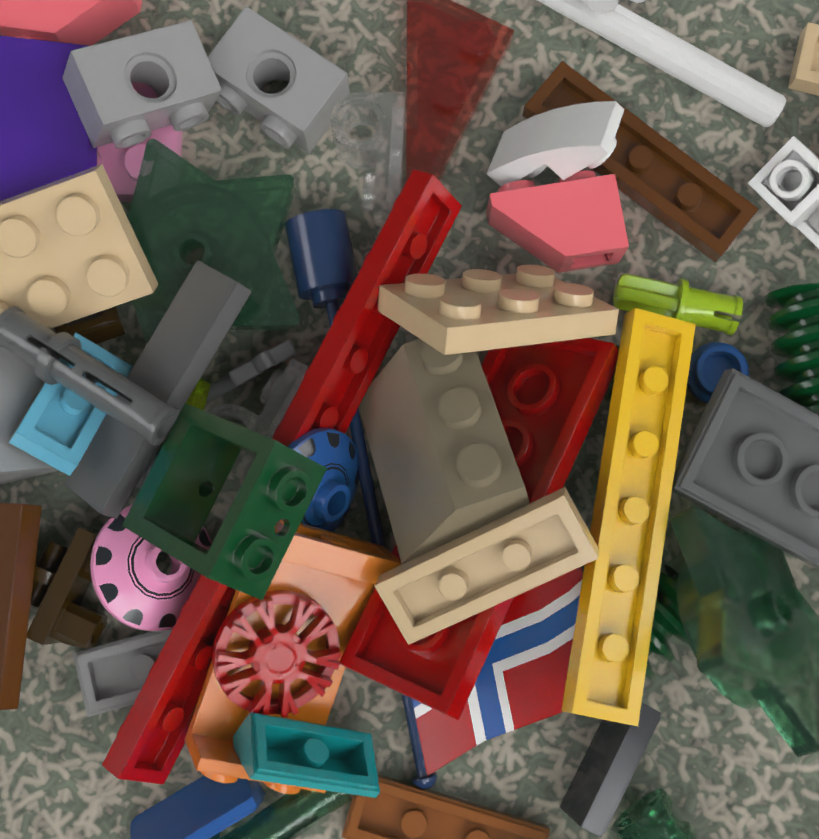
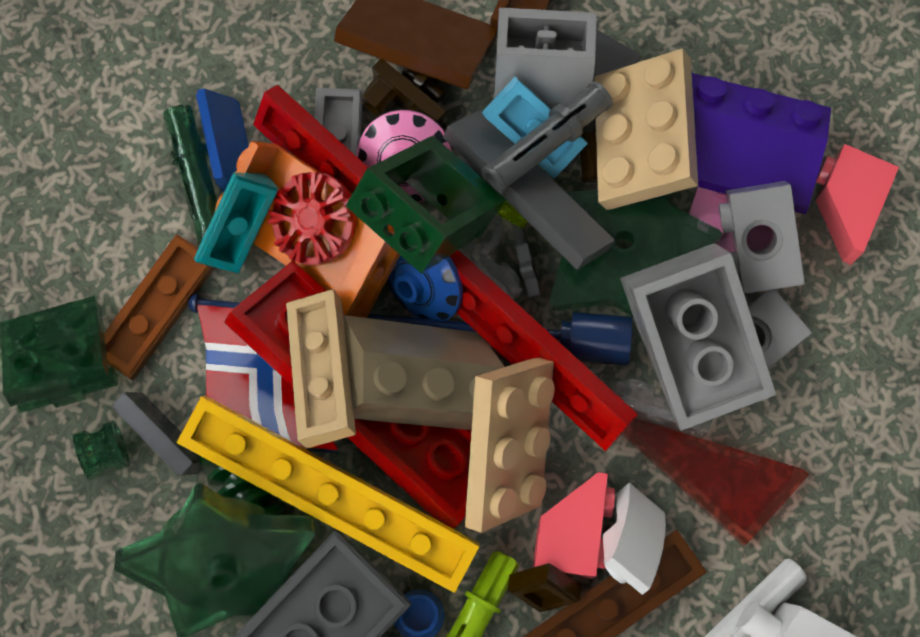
camera: 105 degrees right, 5 degrees down
(286, 125) = (699, 335): none -> light grey slope
(643, 232) = (544, 587): none -> dark brown tile

